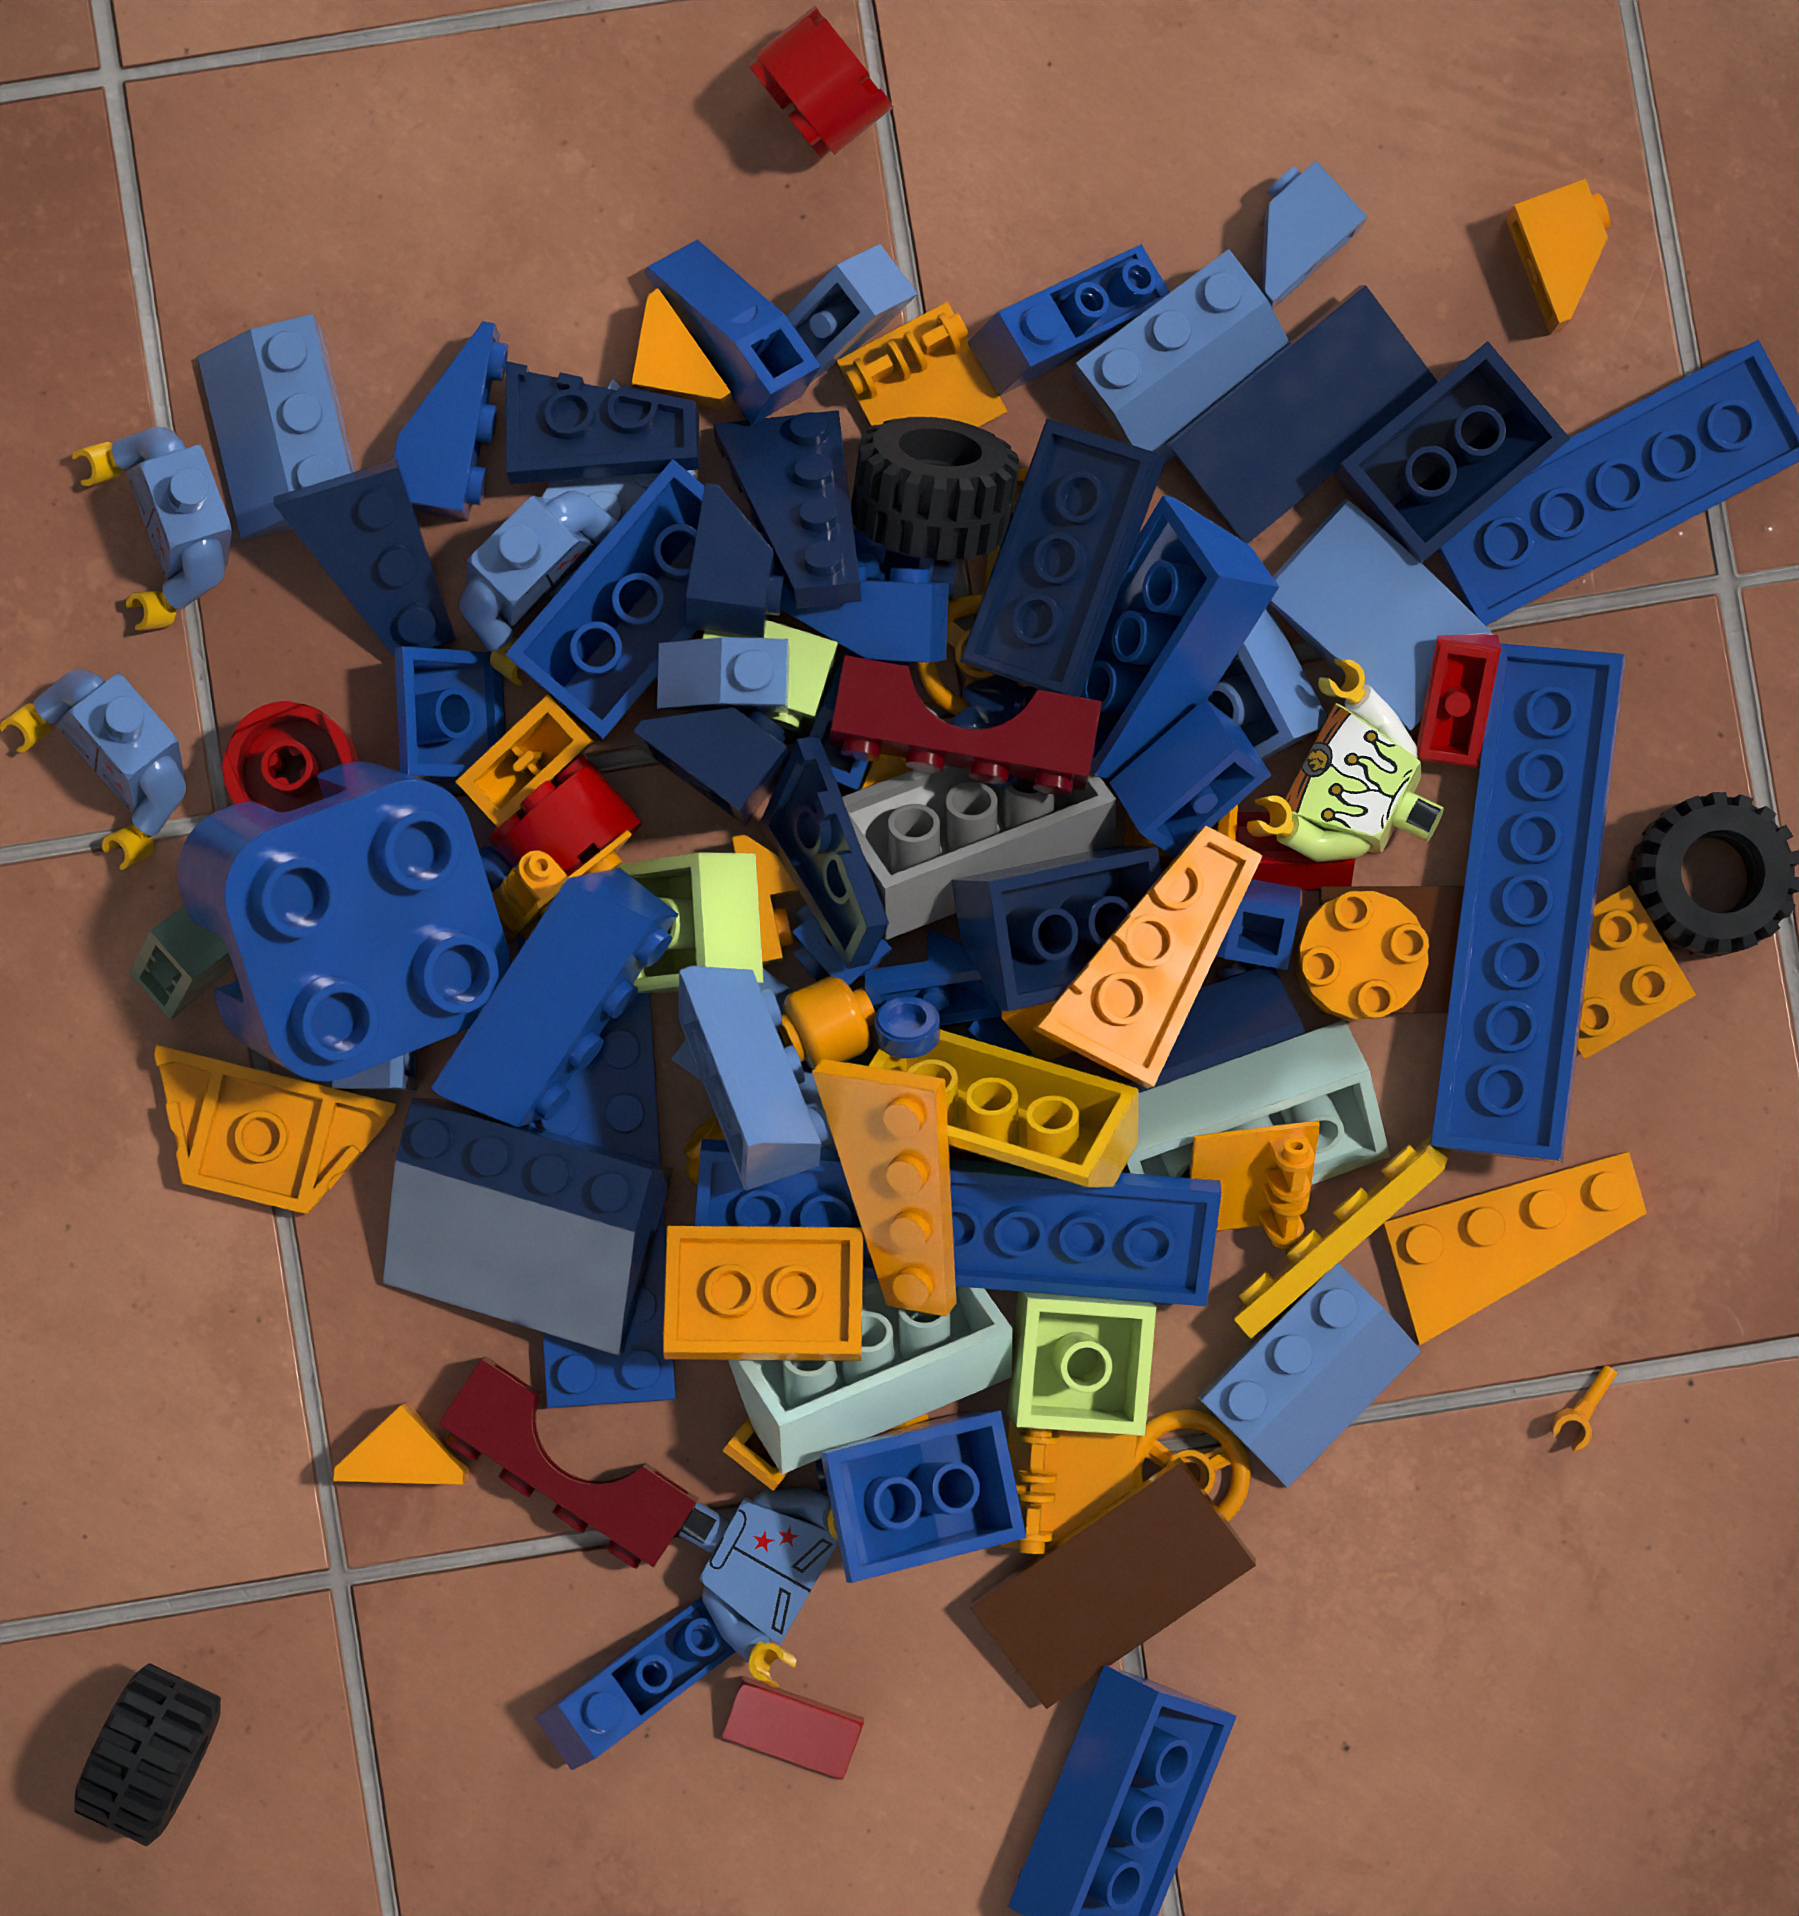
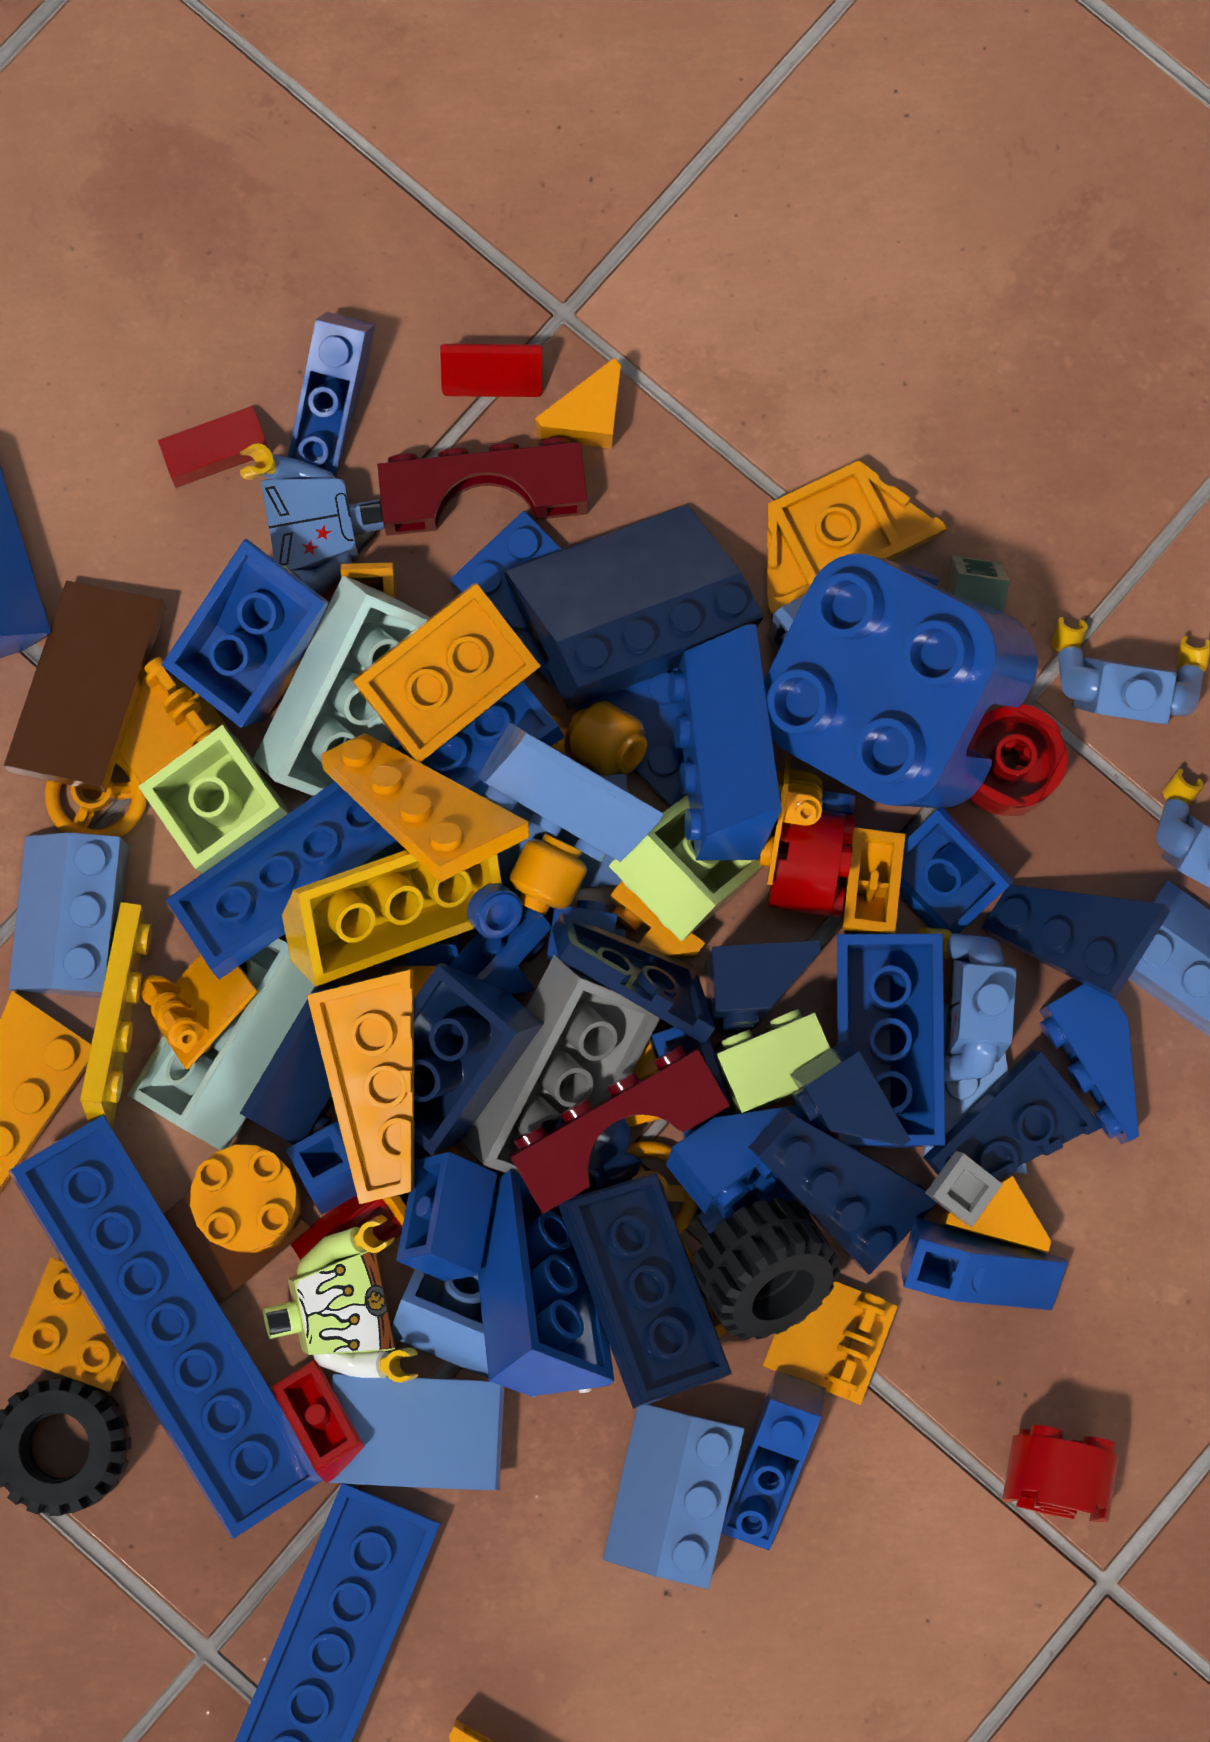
camera: 140 degrees right, 5 degrees down
(147, 1754) = (587, 110): black tyre -> none
(460, 1574) = (491, 370): none -> red slope
(660, 1108) = (607, 739): none -> light orange head
(688, 406) = (964, 1188): none -> light grey tile
(724, 674) = (793, 1028): medium blue slope -> none
(851, 305) = (918, 1345): medium blue slope -> none
(1301, 414) = (571, 1525): dark blue tile -> none
(1303, 228) = (673, 1648): medium blue slope -> none
(1451, 454) = (451, 1577): dark blue slope -> none

